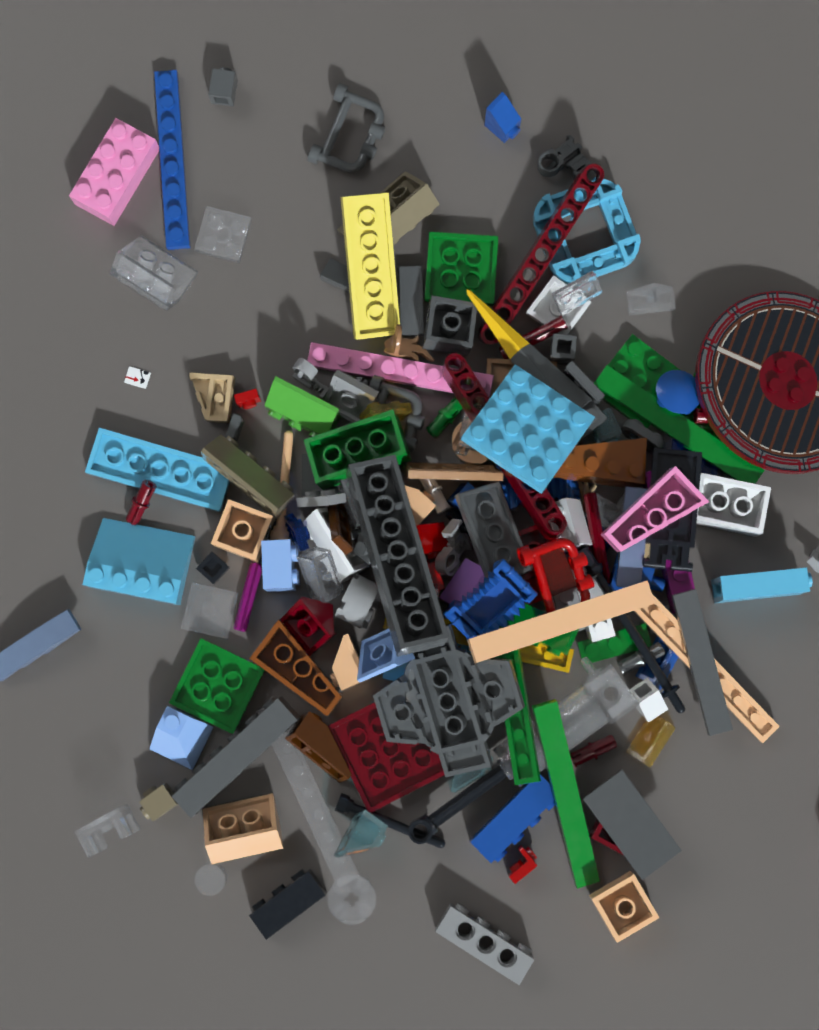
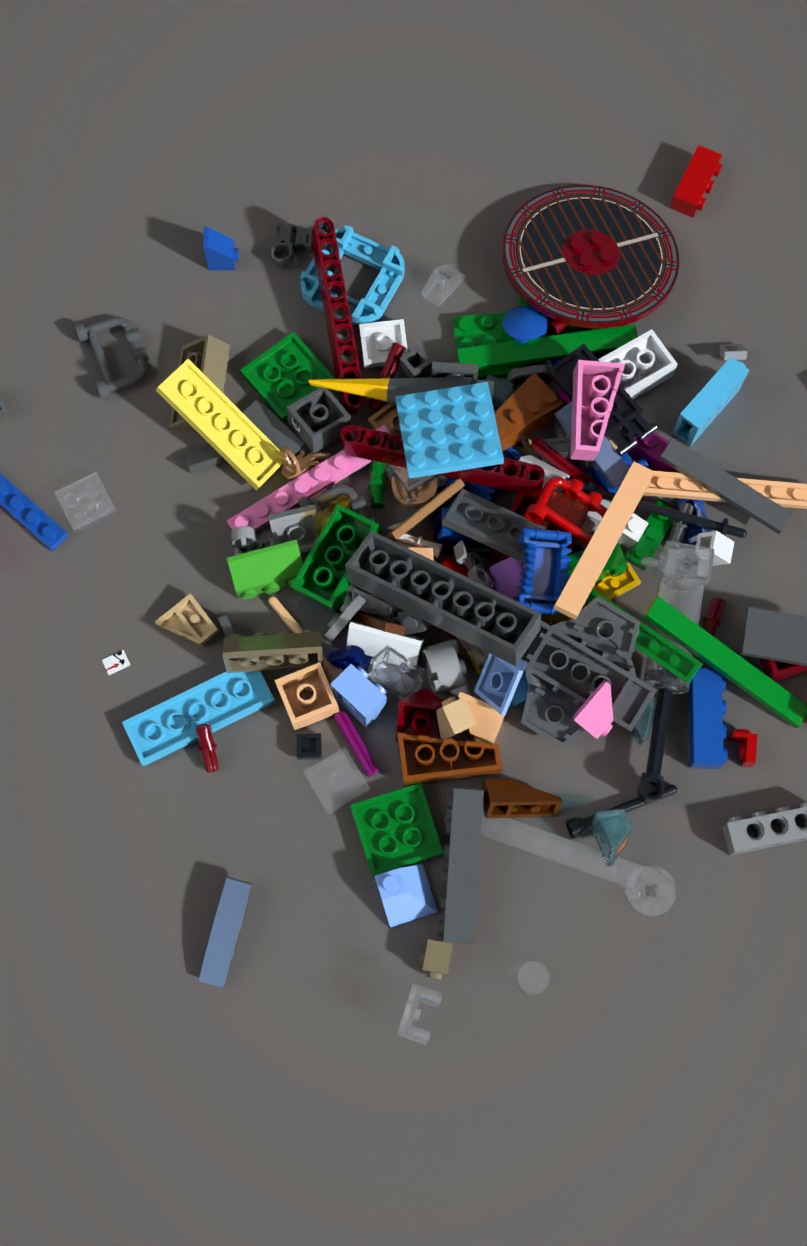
camera: 45 degrees left, 10 degrees down
(139, 561) = (248, 793): medium azure slope -> none
(153, 272) = (57, 575): clear slope -> none
(242, 828) = (519, 917): light nougat slope -> none
(247, 399) = (217, 601): red plate -> none
(287, 903) = (606, 939): black brick -> none
(326, 648) = (454, 717): none -> tan slope
(378, 767) = (576, 773): dark red plate -> none
(428, 742) = (597, 711): none -> bright pink slope
(577, 293) = (388, 319): clear plate -> none
(650, 740) = (743, 577): clear yellow slope -> none

